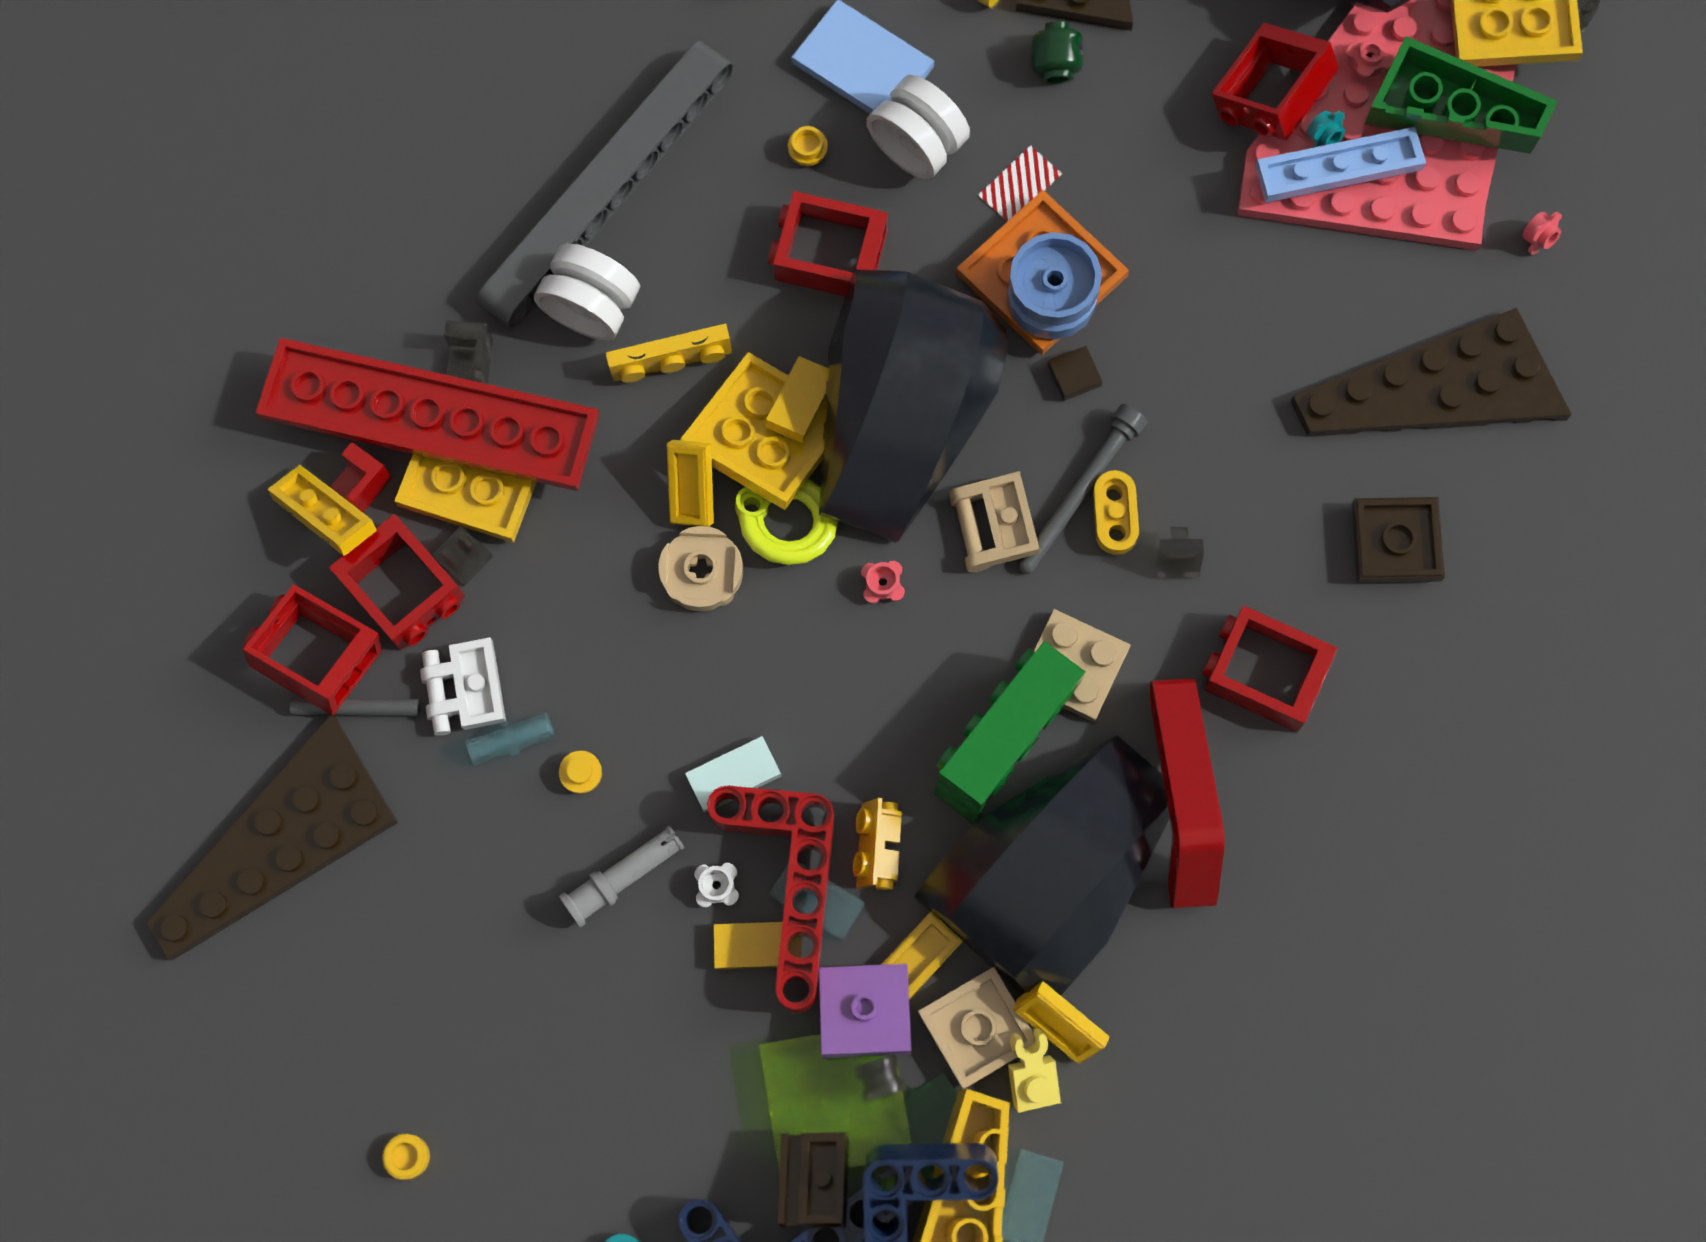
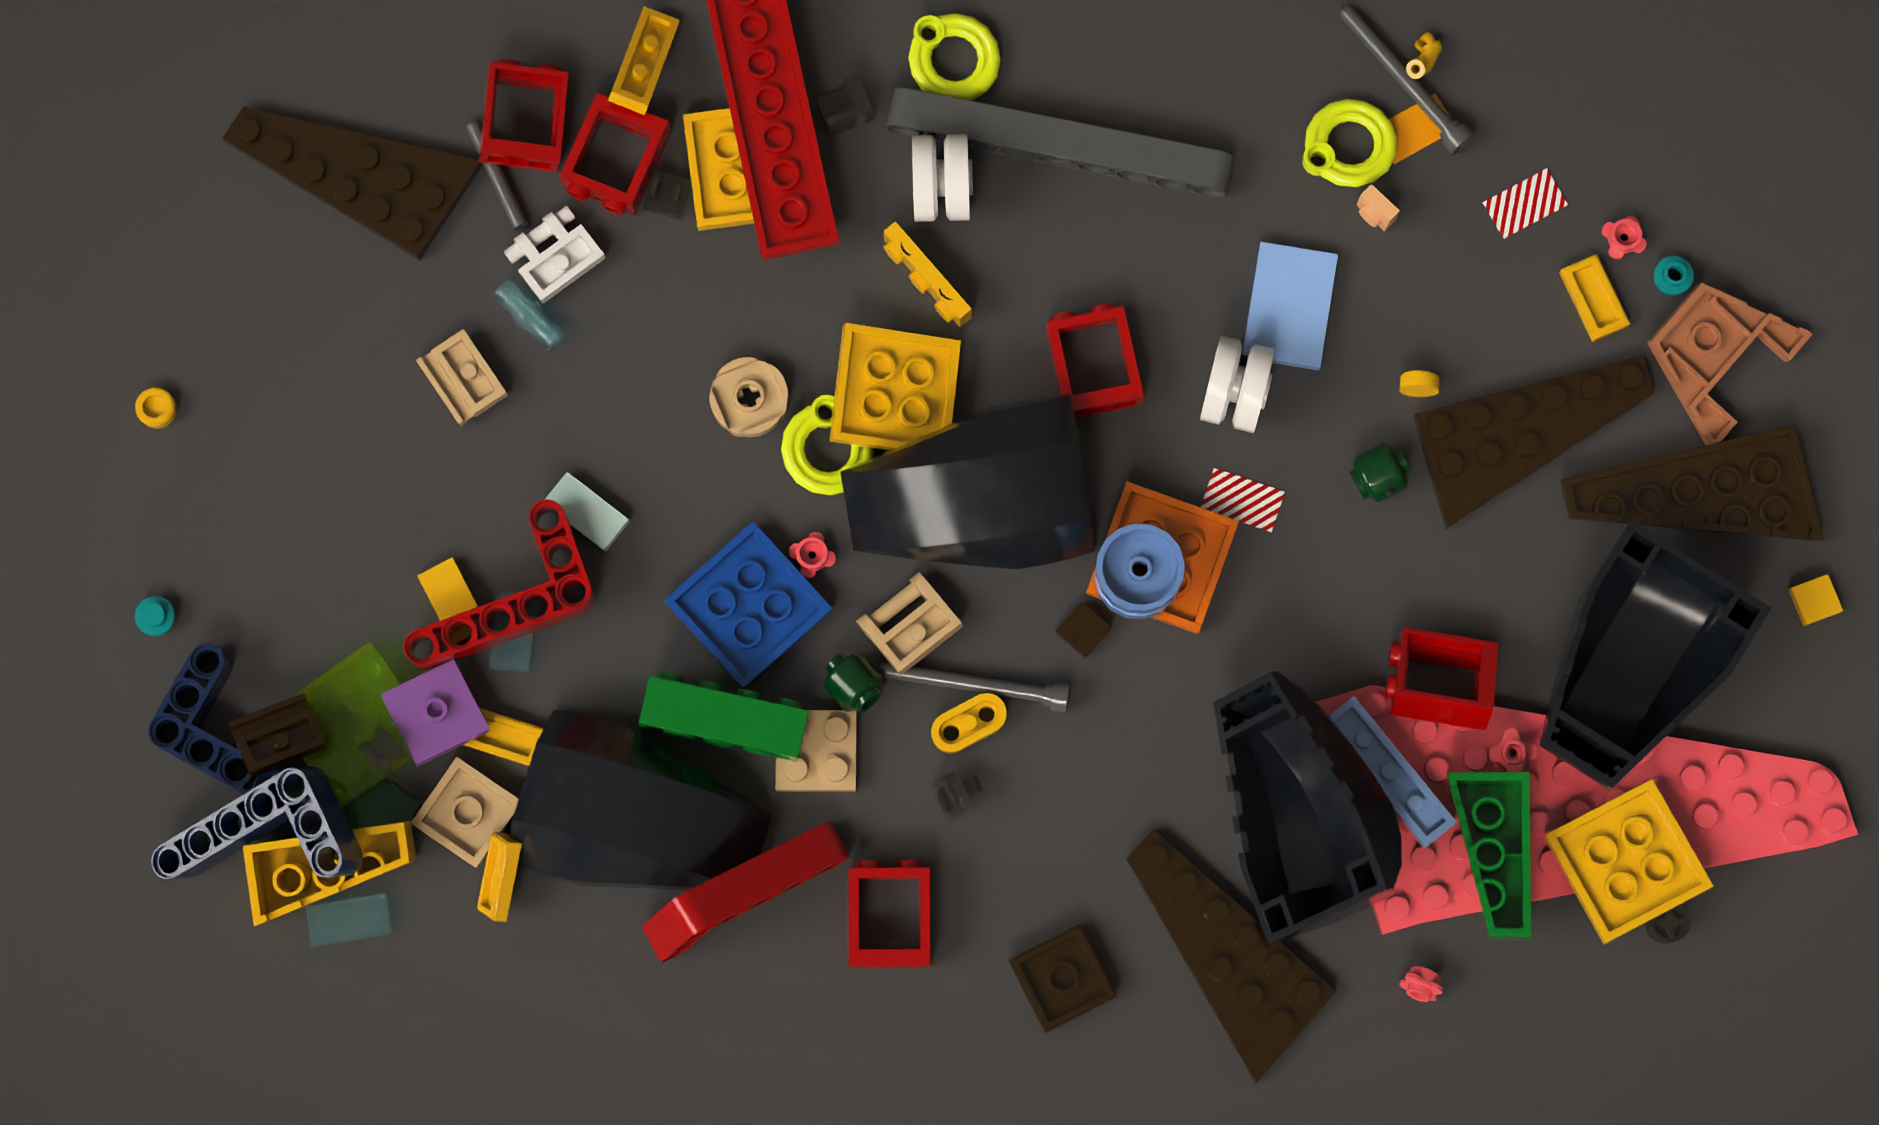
camera: 65 degrees right, 5 degrees up
(361, 479) = (690, 76): red panel -> none
(458, 210) = (947, 26): none -> neon yellow piece
(538, 831) = (462, 377): none -> tan plate
(580, 772) = (528, 386): yellow plate -> none
(604, 887) = (441, 453): light grey pin -> none
(690, 483) = (814, 350): yellow tile -> none
(707, 876) = (483, 554): white plate -> none
(799, 400) = (932, 404): yellow tile -> none
(807, 146) = (1182, 297): yellow plate -> none
(873, 864) = (567, 662): yellow hinge -> none
(903, 662) = (748, 605): none -> blue plate
(1027, 597) = (853, 682): none -> dark green head
(1034, 1077) = (448, 874): light yellow plate -> none
(1326, 128) = (1415, 745): teal plate -> none
(1354, 239) = (1307, 810): none -> black windscreen

